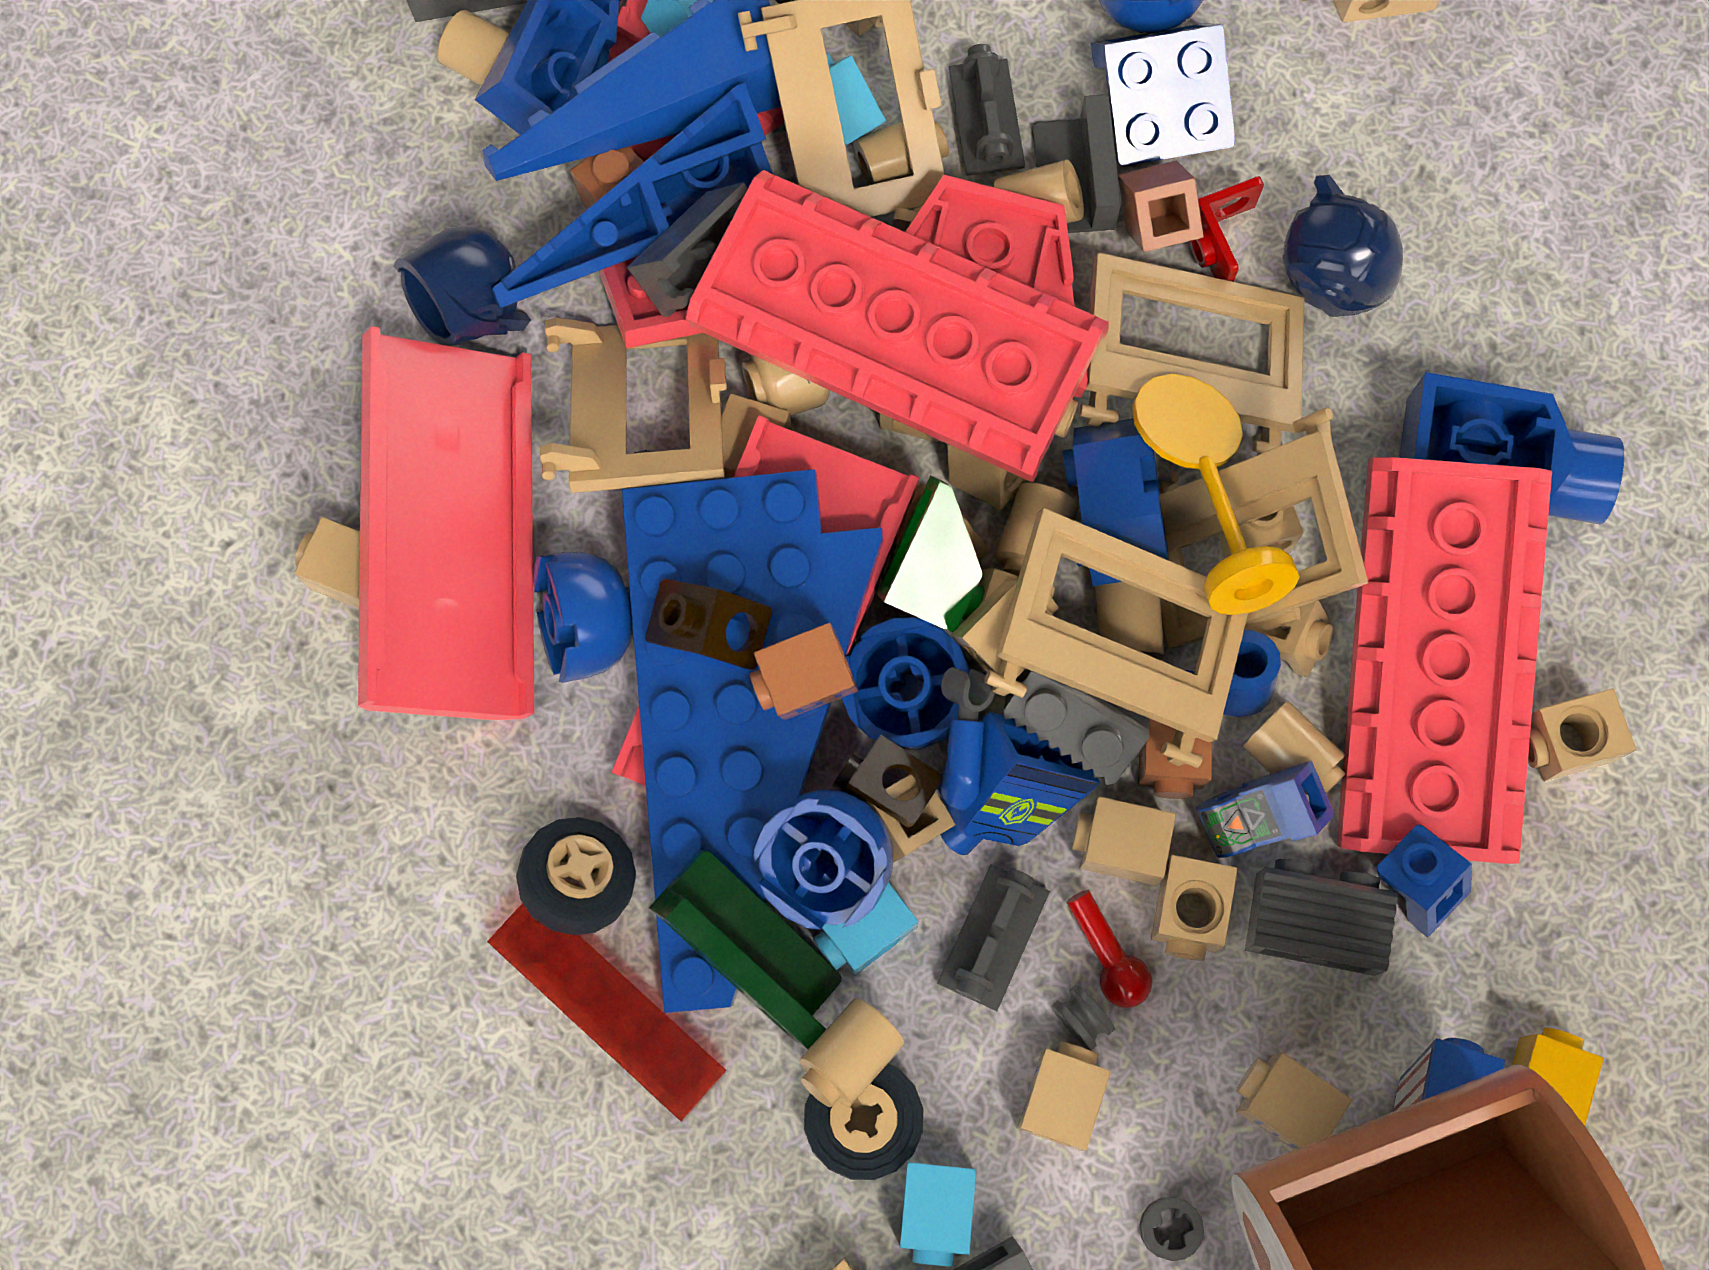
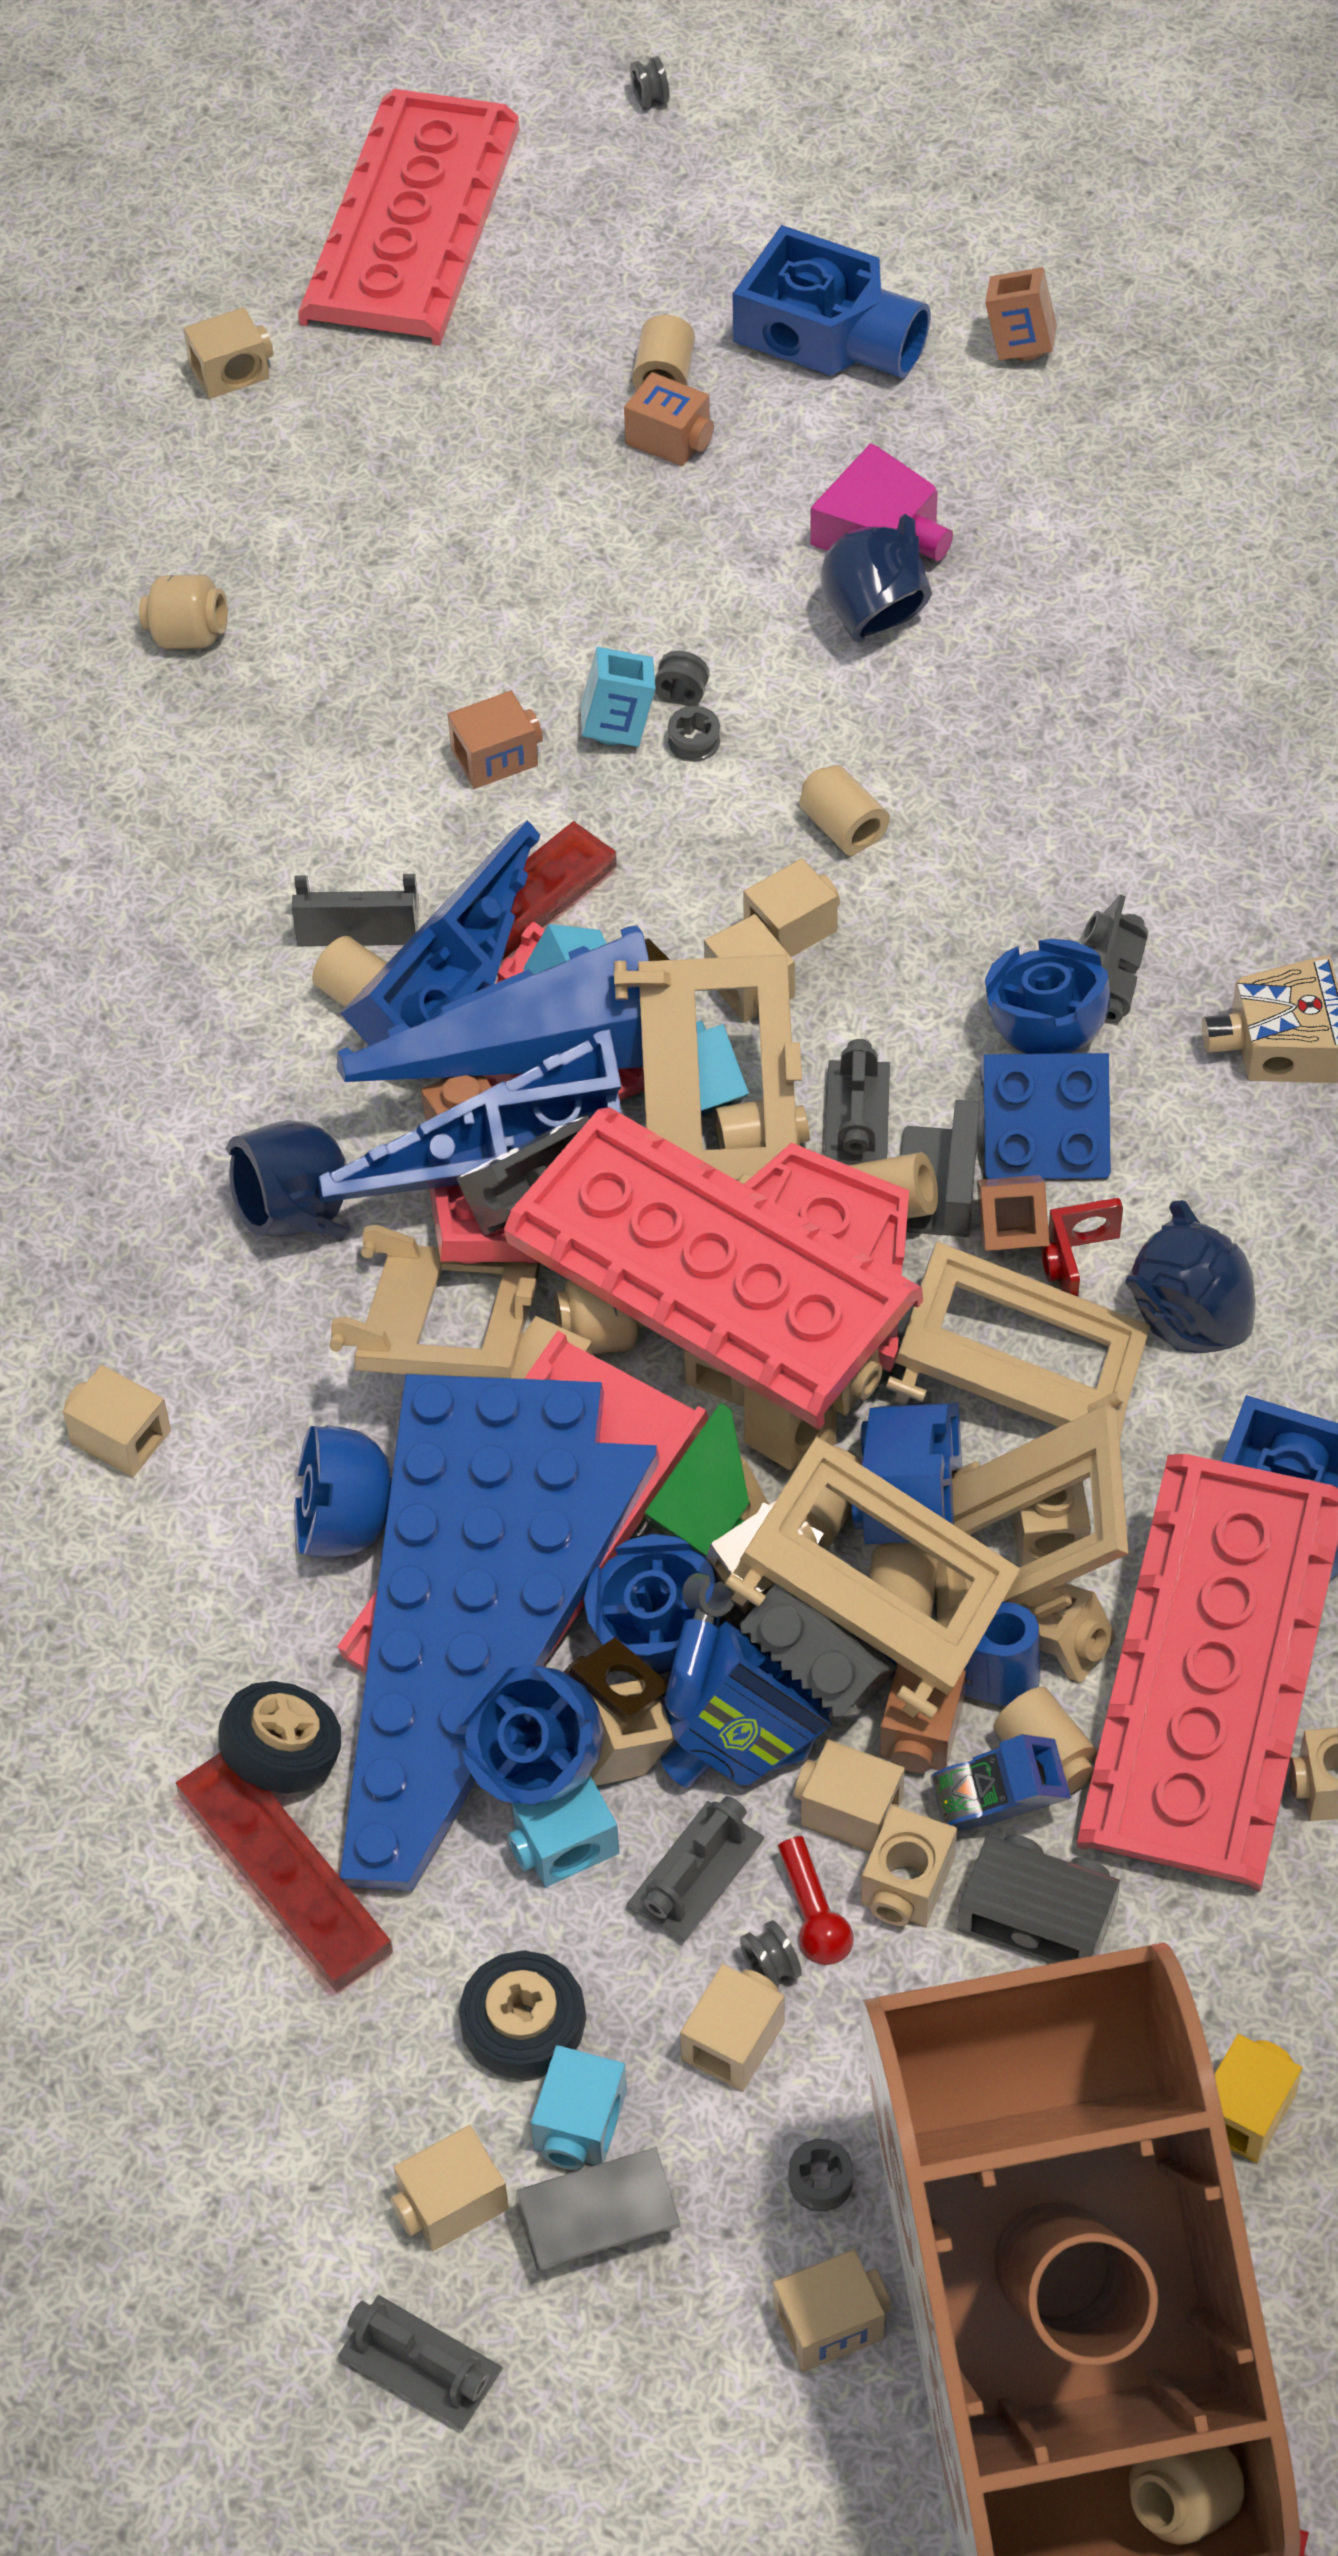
camera: 10 degrees right, 20 degrees down
(445, 531) = (221, 1401): coral ladder -> none
(697, 618) = (451, 1492): dark brown bracket -> none
(748, 945) = (439, 1820): dark green panel -> none
(802, 673) = (547, 1557): nougat brick -> none
(849, 1054) = (519, 1931): tan brick -> none
(1201, 431) = (1002, 1409): yellow piece -> none
(1428, 876) = (1160, 1879): blue bracket -> none

